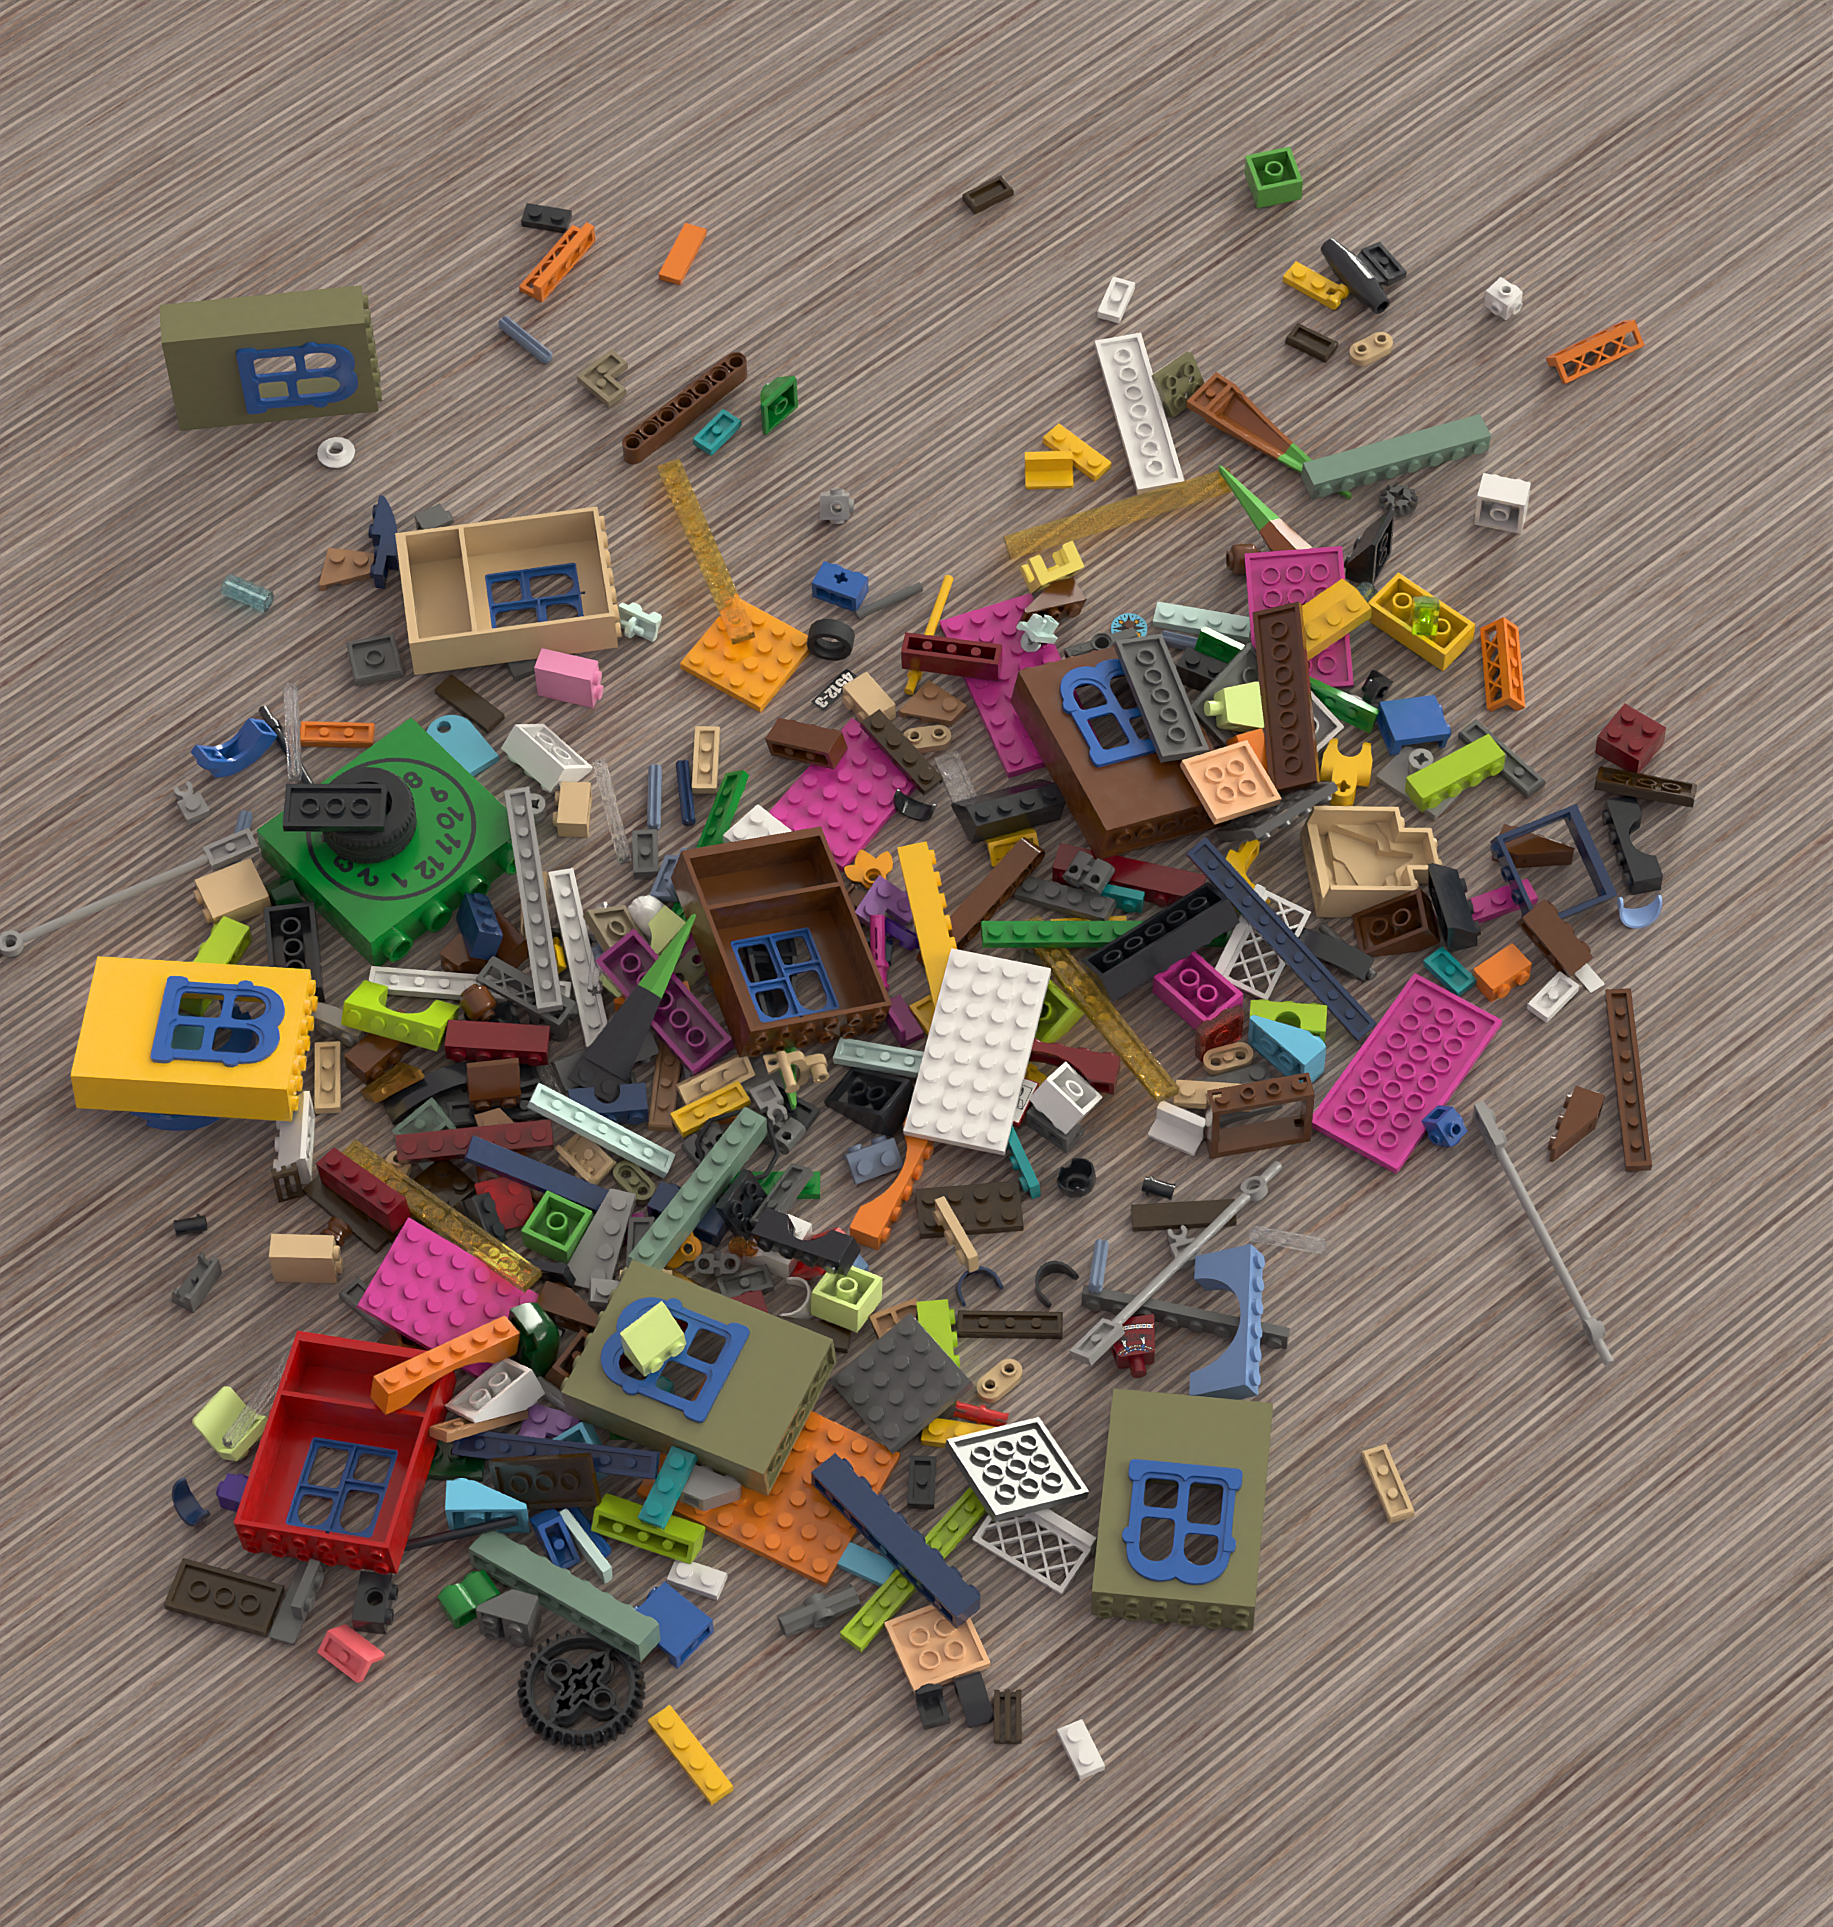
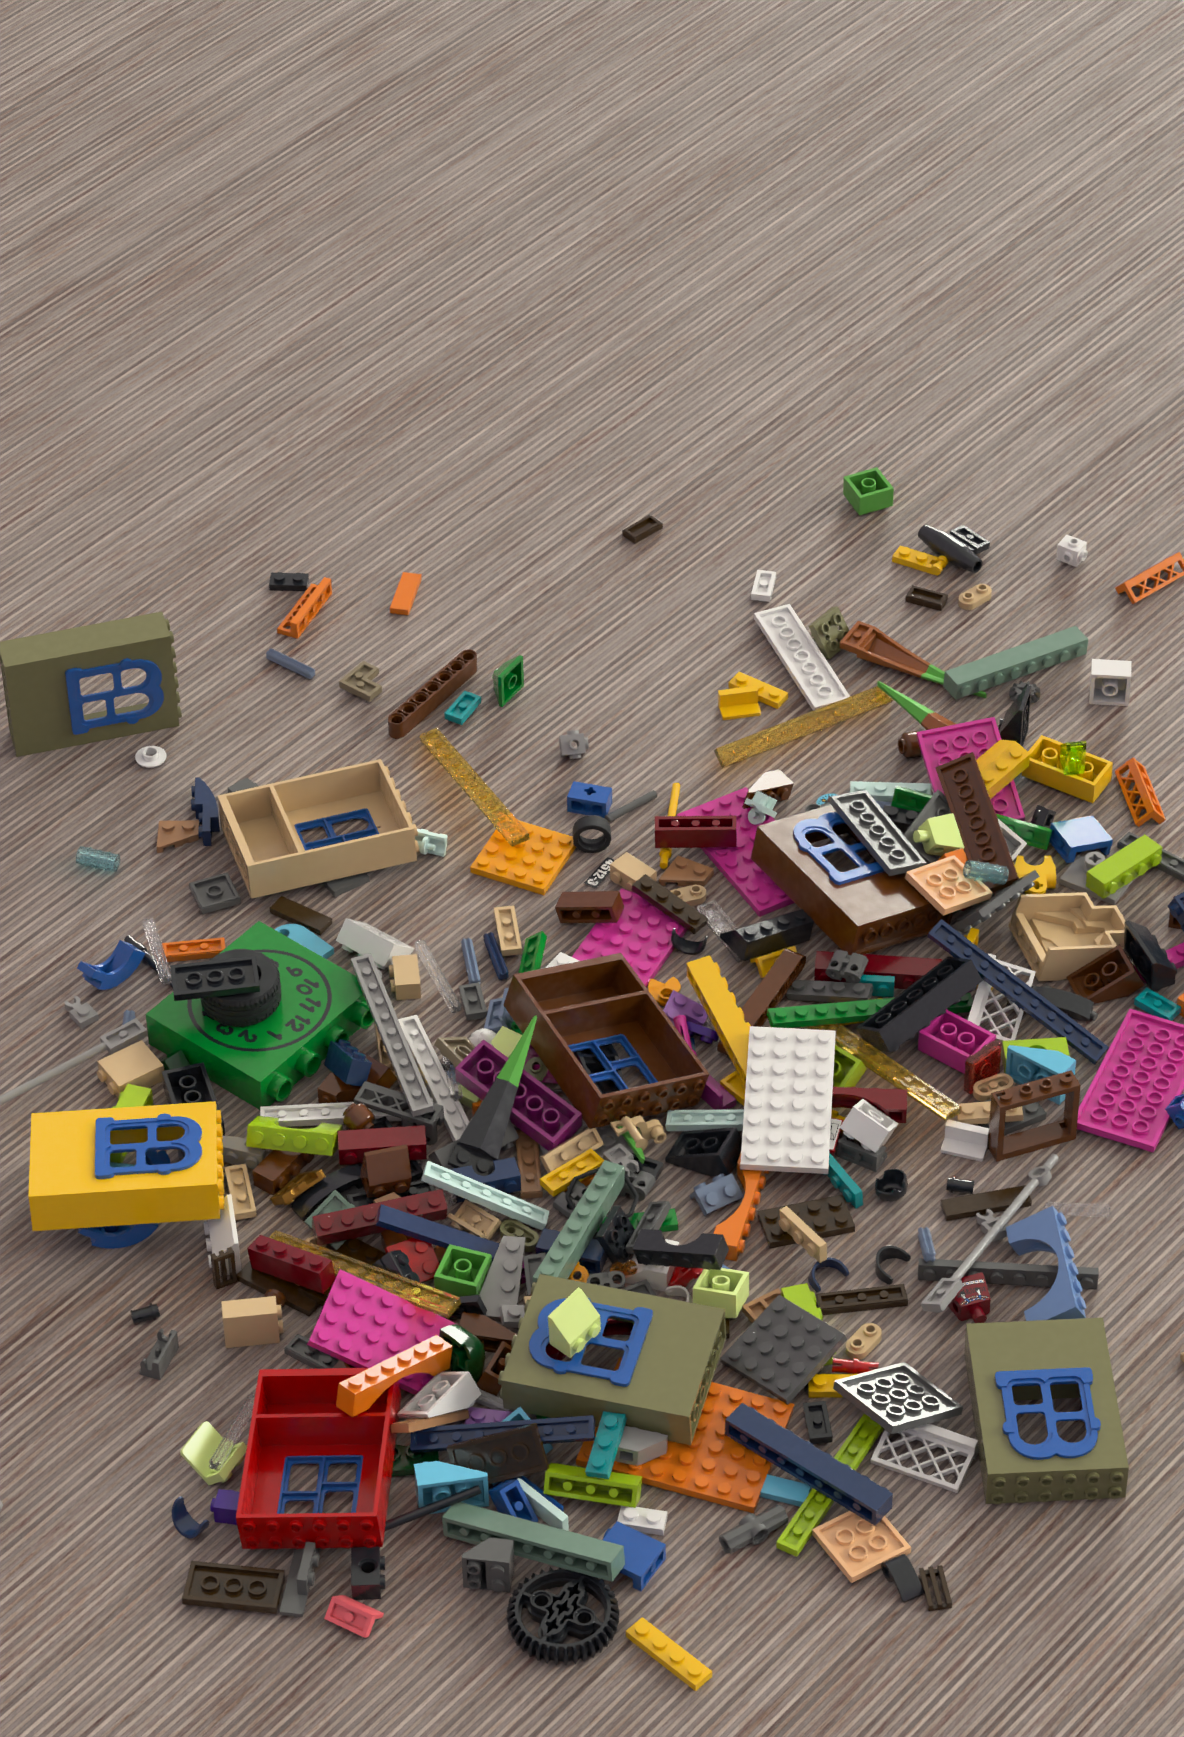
camera: 10 degrees left, 15 degrees down
(461, 1600) = (446, 1560): green brick -> none
(568, 678) = (381, 884): bright pink brick -> none
(931, 1706) = (868, 1586): black bracket -> none
(1039, 577) = (760, 765): light yellow panel -> none
(1080, 1749) = (1004, 1604): white plate -> none
(1277, 771) = (985, 872): none -> clear light blue axle

